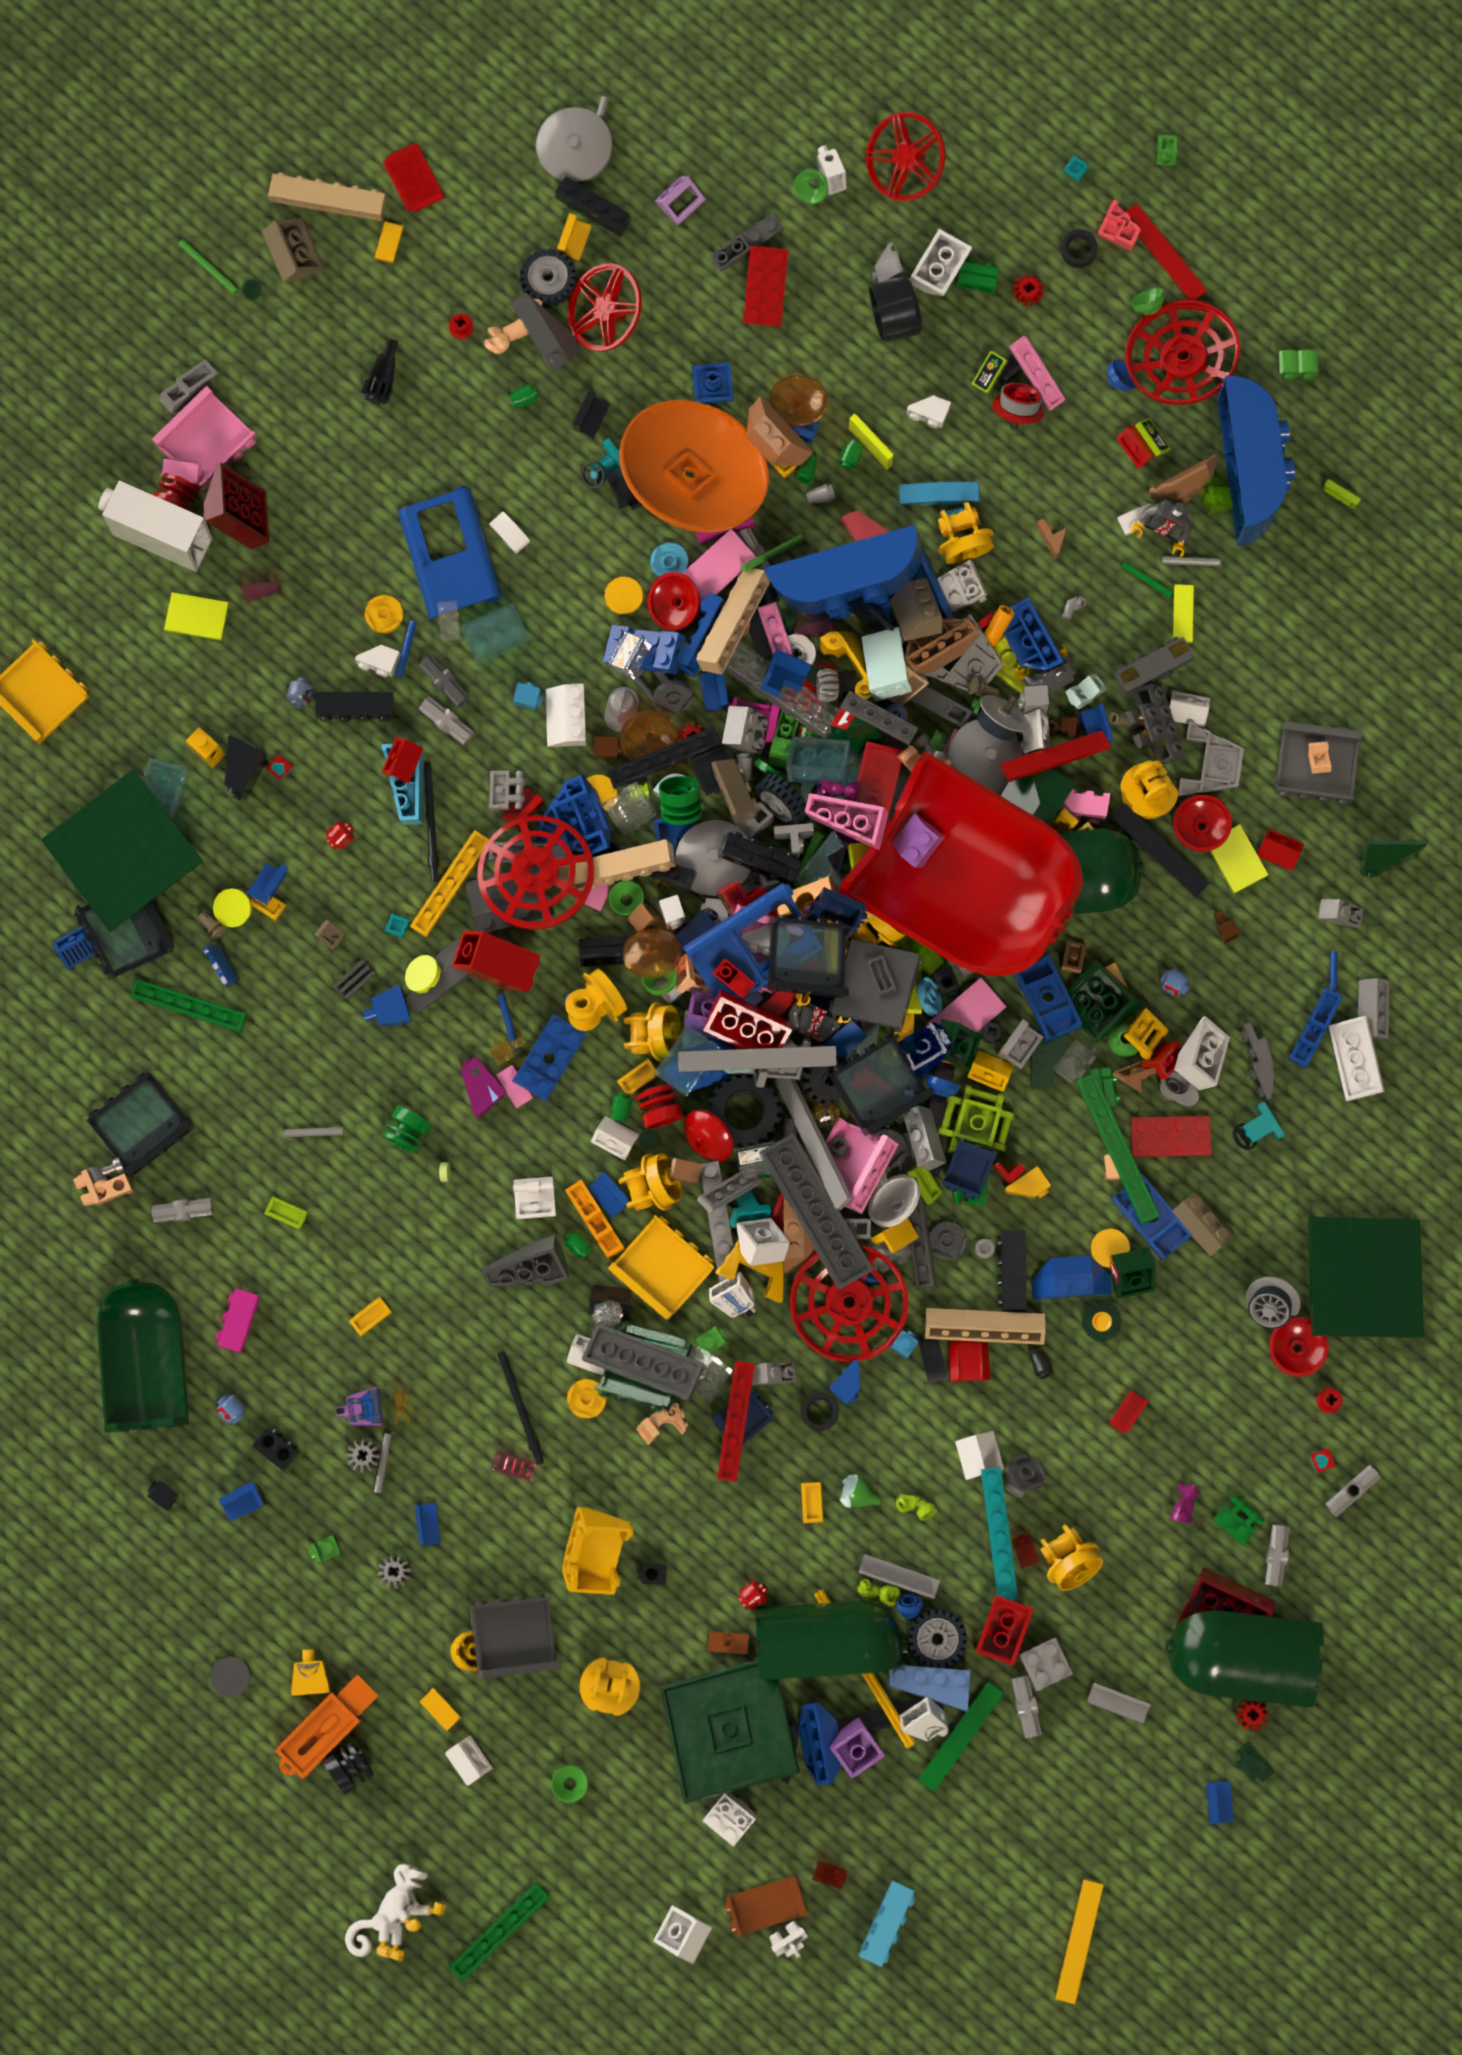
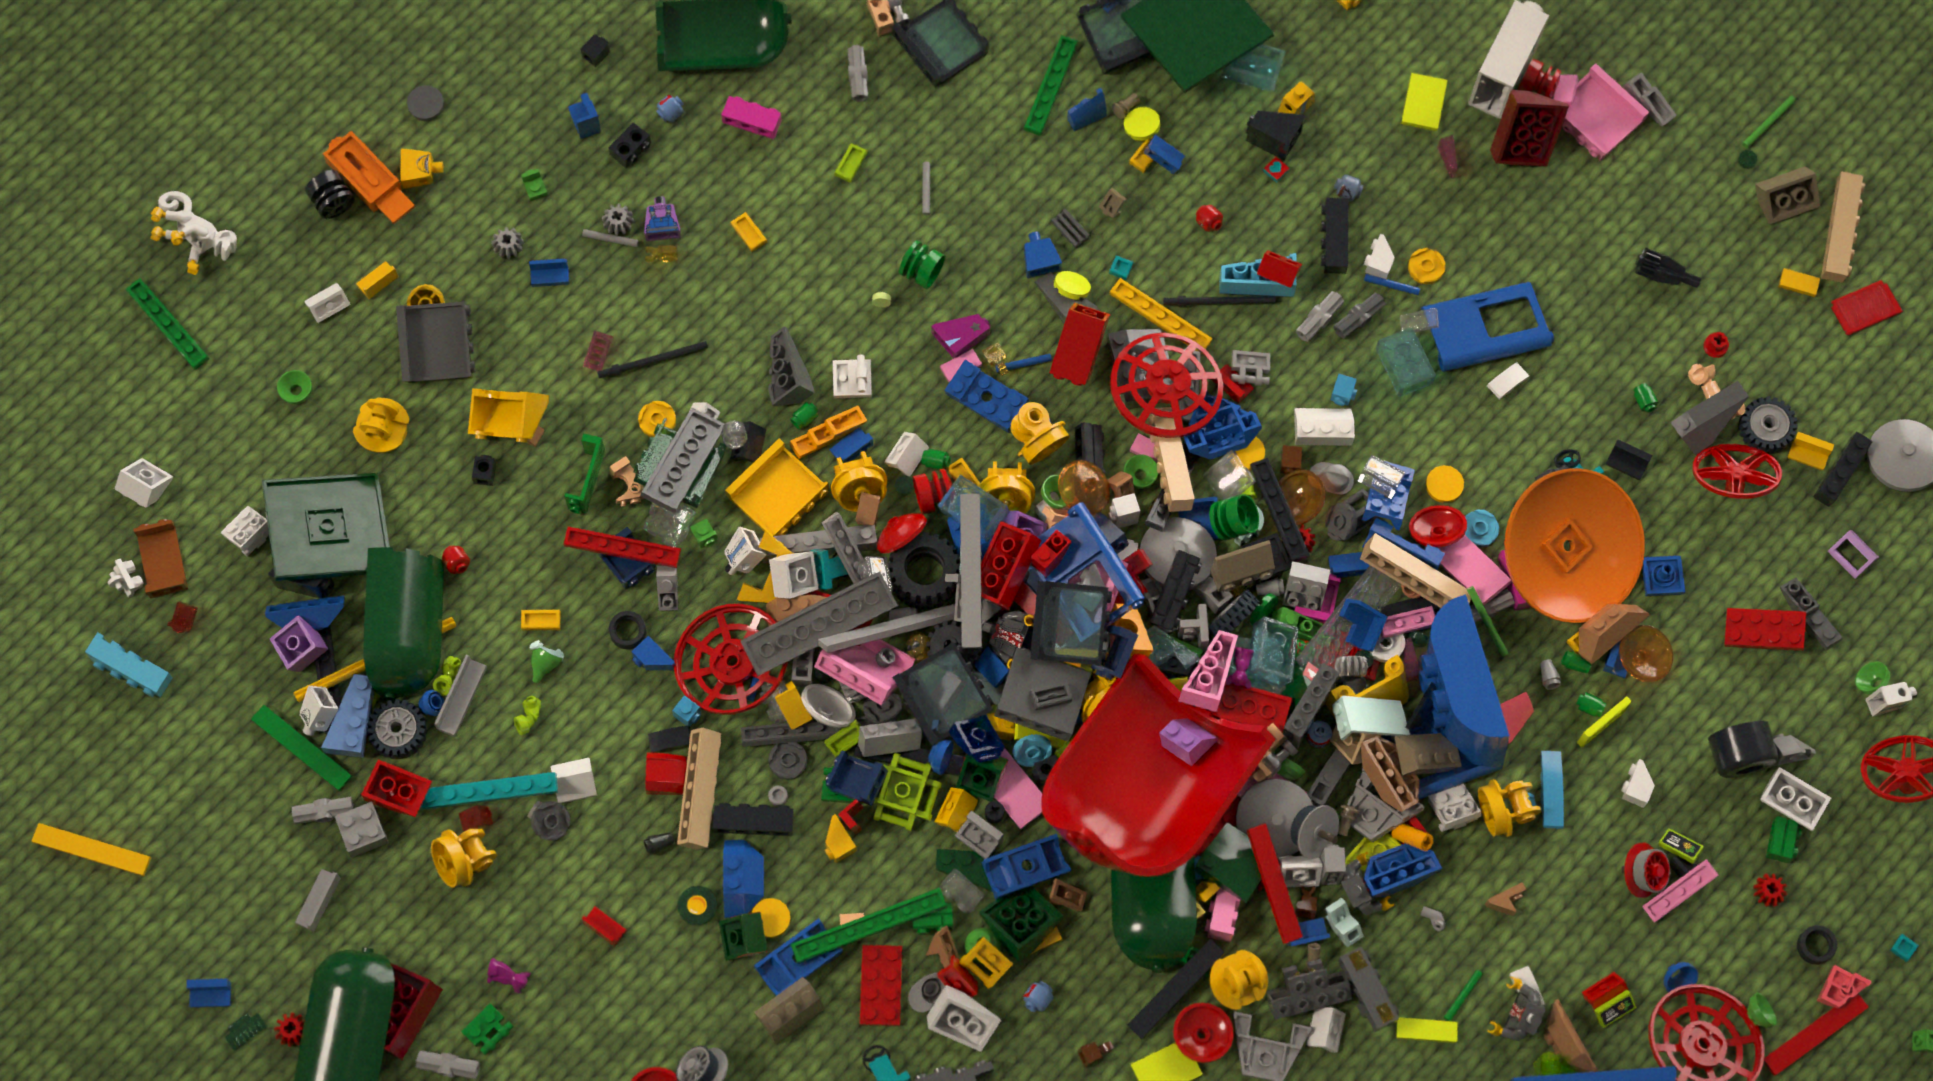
camera: 90 degrees right, 10 degrees down
(626, 1454) = (593, 446): none -> green panel
(728, 1642) = (413, 534): dark orange plate -> none
(1191, 561) = (1483, 1042): light grey bar -> none

